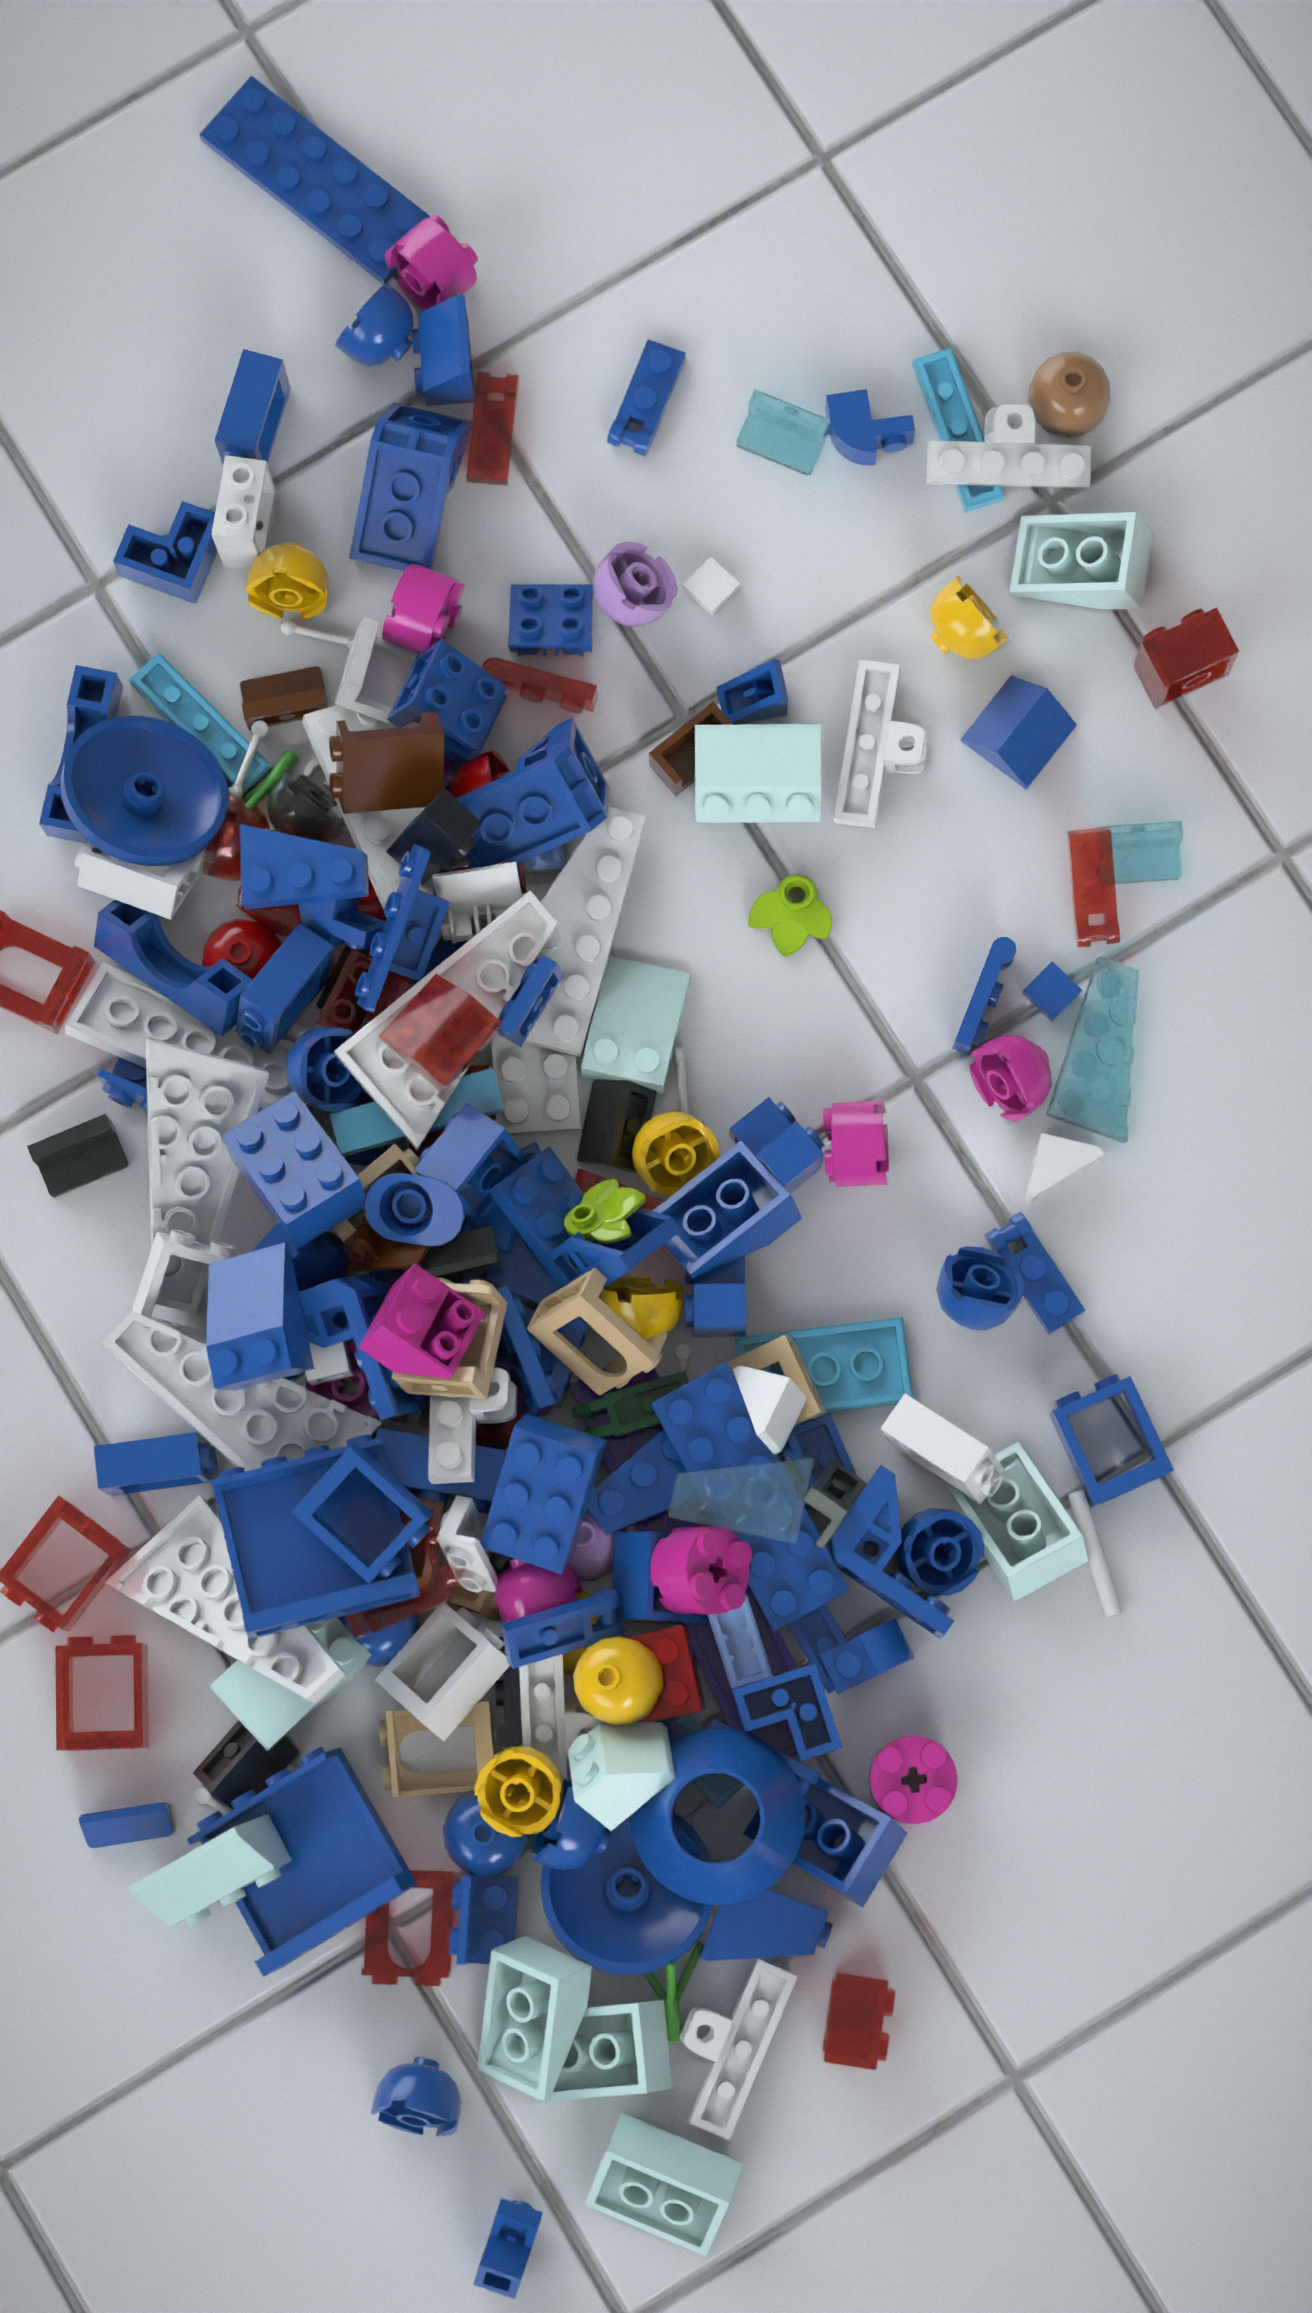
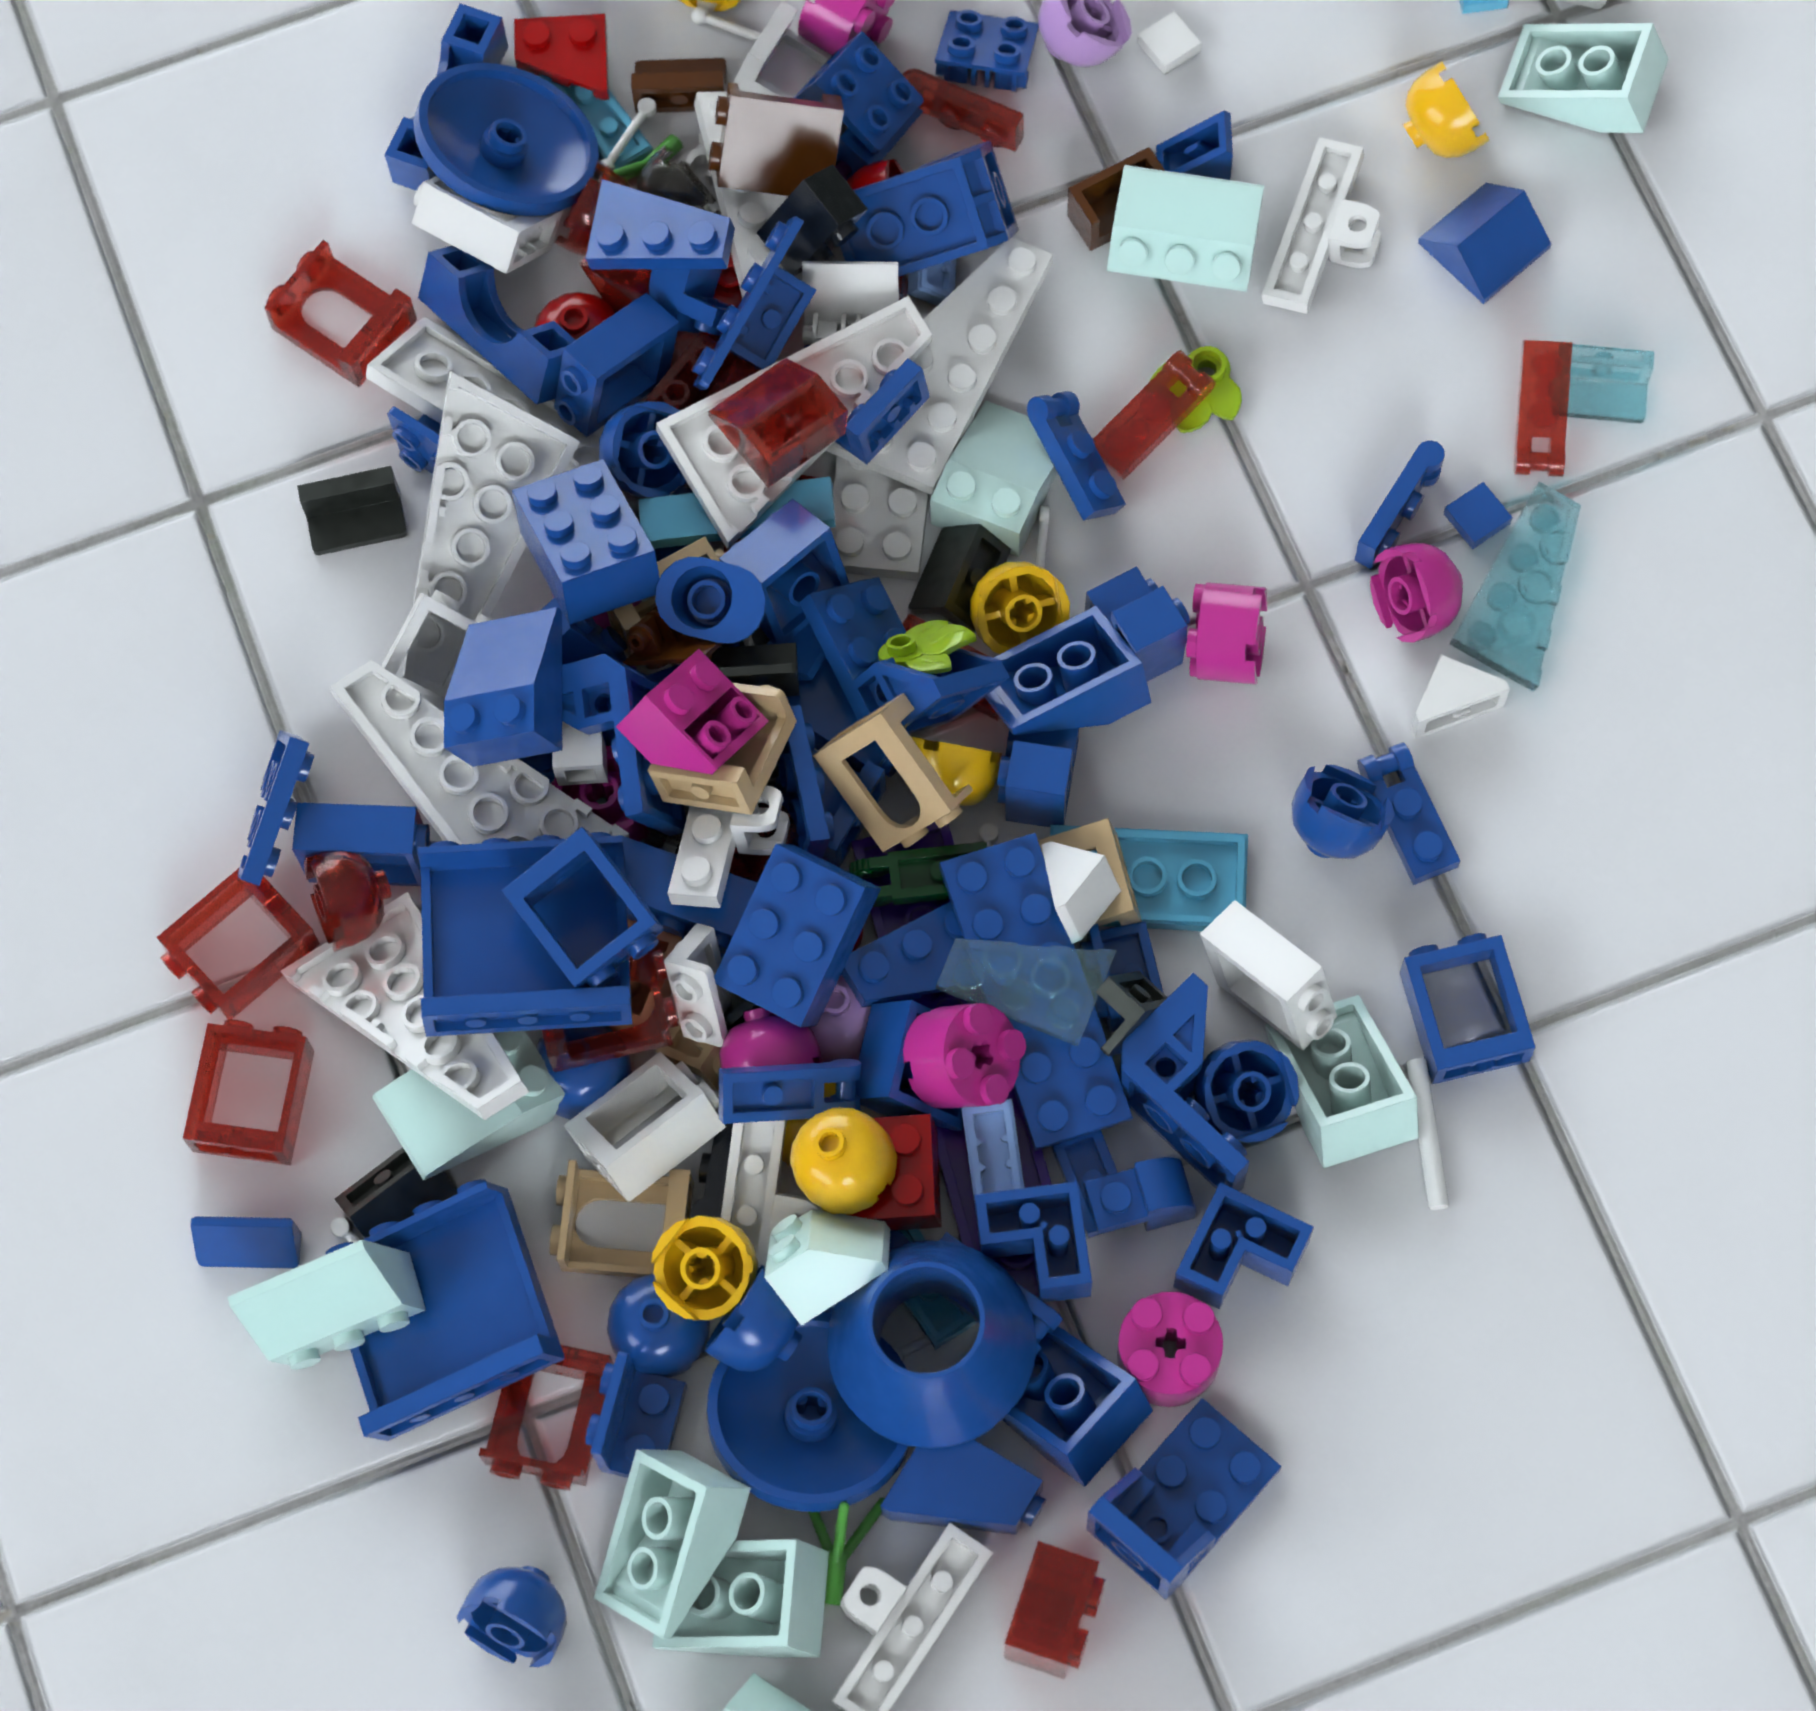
camera: 10 degrees right, 10 degrees down
(75, 1417) = (286, 765): none -> blue plate
(152, 1517) = (346, 896): none -> clear red cylinder
(177, 686) = (565, 50): none -> red wing
(696, 998) = (1074, 454): none -> blue plate
(756, 949) = (1152, 415): none -> clear red plate
(945, 1902) = (1181, 1498): none -> blue bracket
(954, 1671) = (1237, 1233): none -> blue brick
(1185, 656) = (1685, 184): clear red brick -> none

